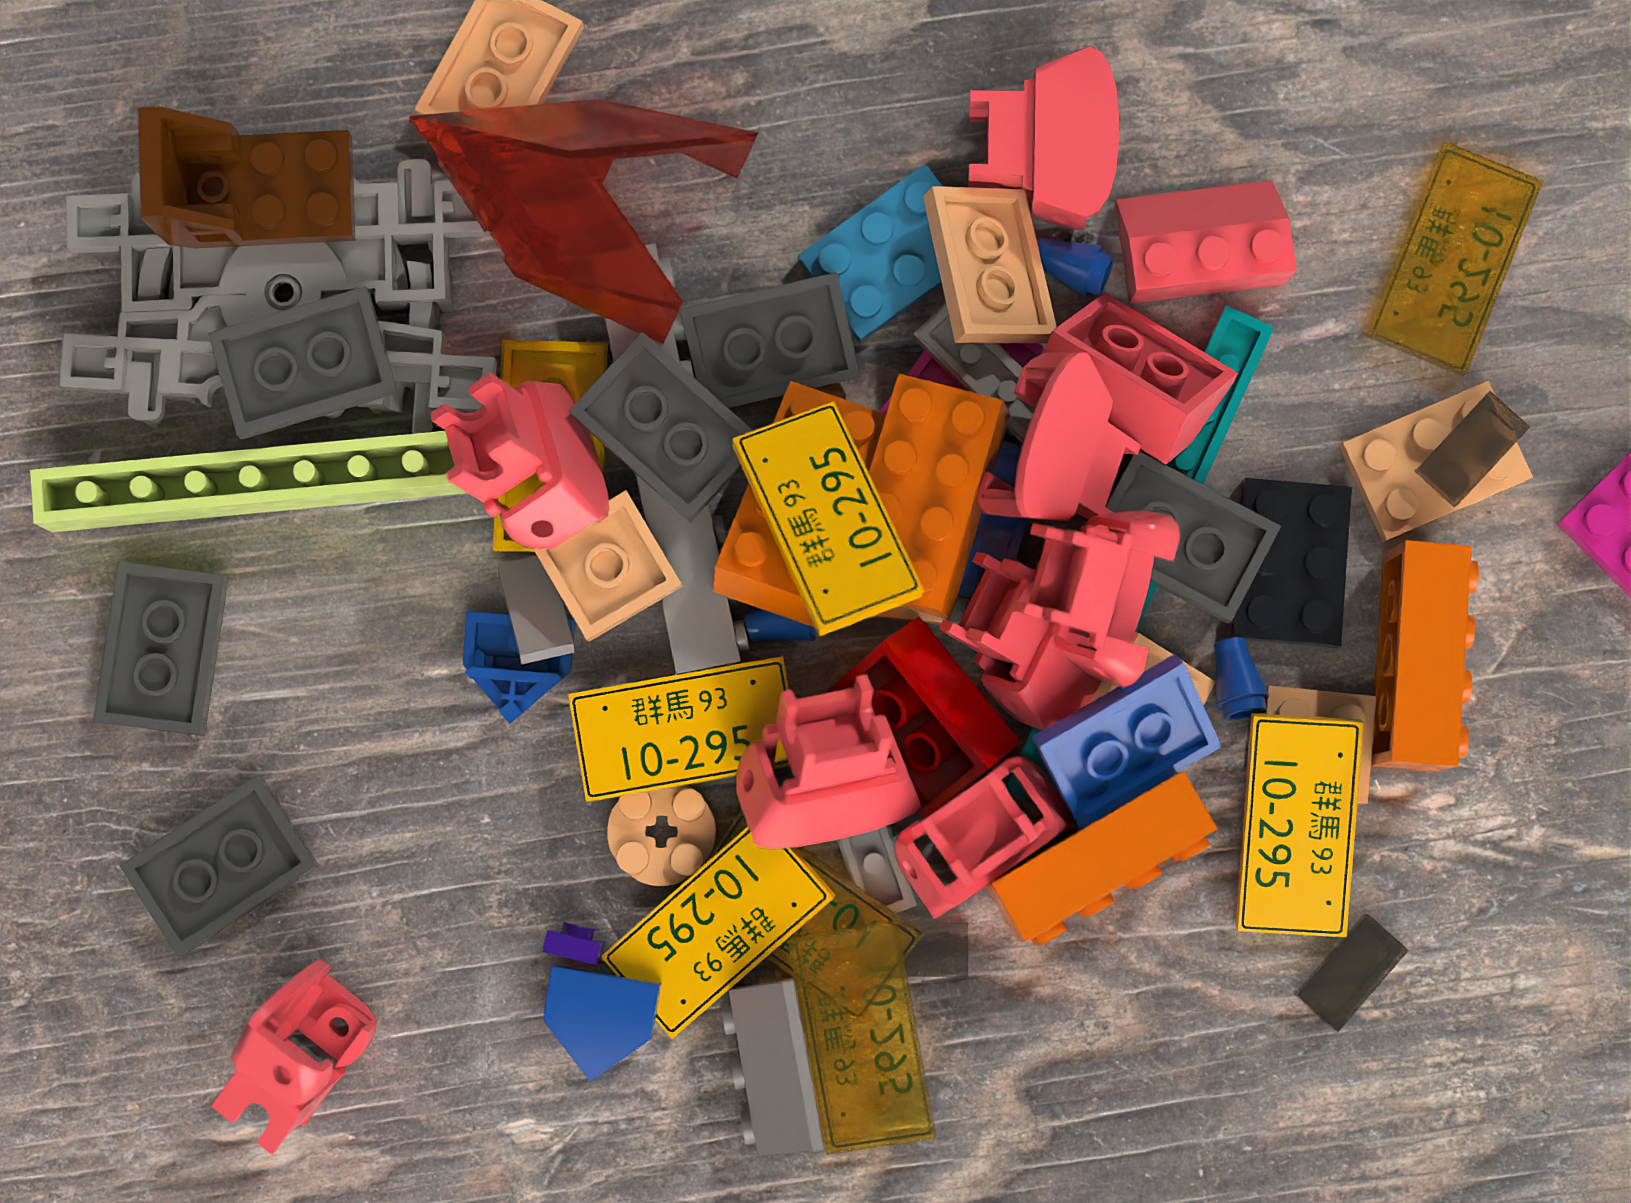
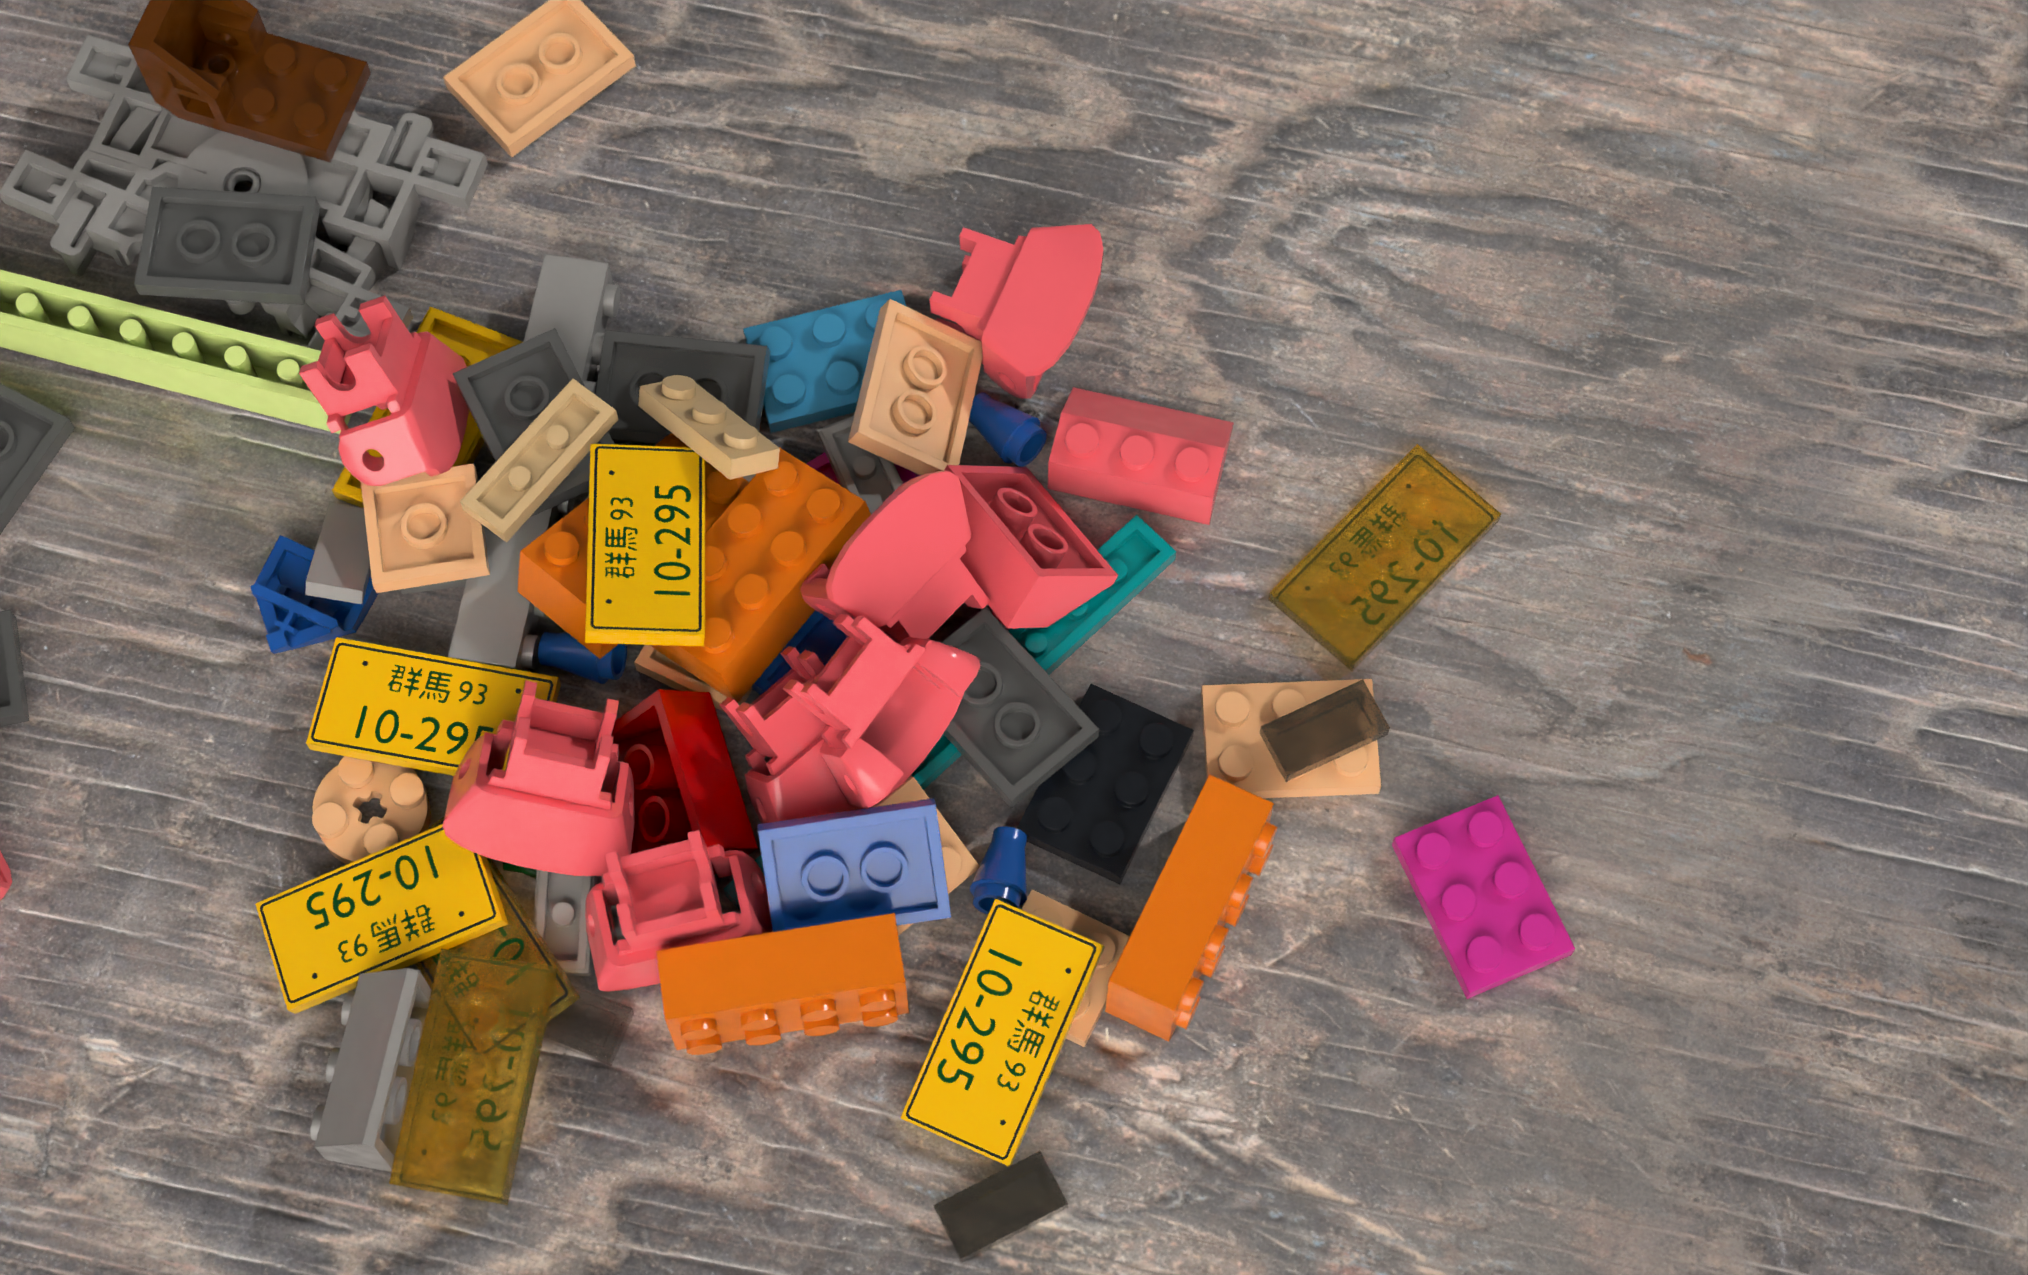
camera: 20 degrees right, 15 degrees down
(540, 193) = (516, 198): clear red windscreen -> none
(574, 943) = (234, 880): dark purple plate -> none
(599, 1016) = (226, 959): blue slope -> none
(690, 469) = (539, 460): none -> tan plate
(827, 378) = (708, 427): none -> tan plate

